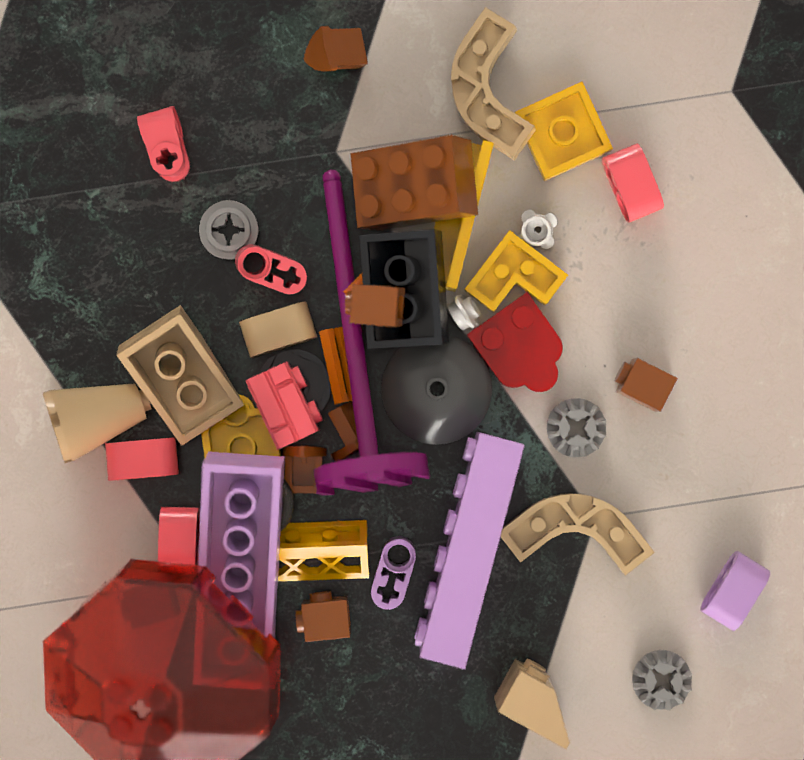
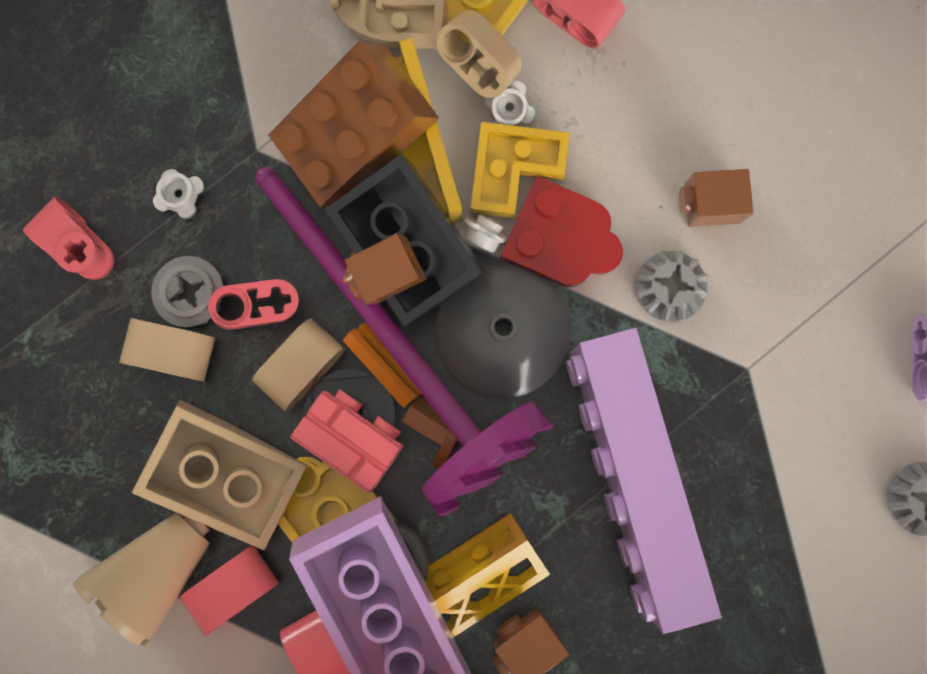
camera: 30 degrees left, 5 degrees down
(191, 264) = (167, 349): none -> tan beam
(261, 142) = (165, 193): none -> white plate
(300, 466) = (405, 497): dark orange tile -> none
(336, 49) = (195, 44): dark orange tile -> none
(400, 583) = (588, 560): lavender beam -> none
(532, 701) = (811, 608): tan slope -> none
(535, 181) = (474, 69): none -> tan beam
(577, 514) = (735, 371): tan plate -> none

